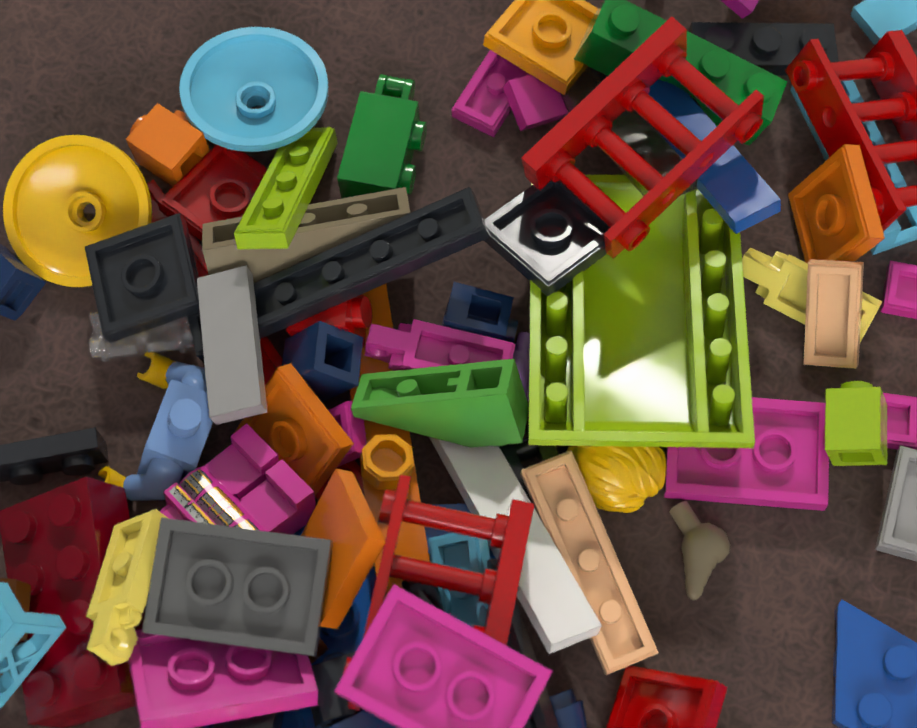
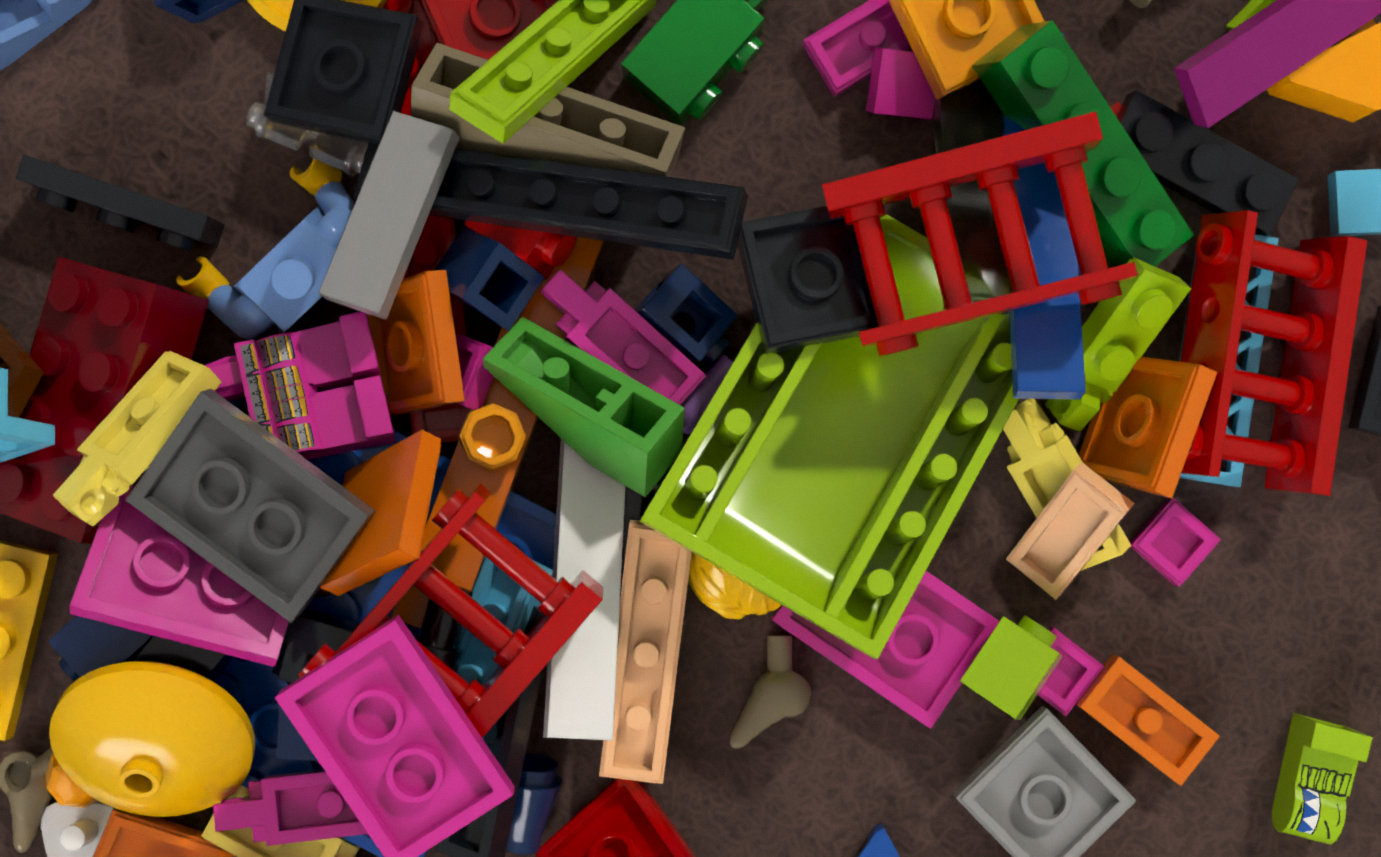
camera: 20 degrees right, 20 degrees up
(781, 162) = (1119, 336): none -> lime hinge

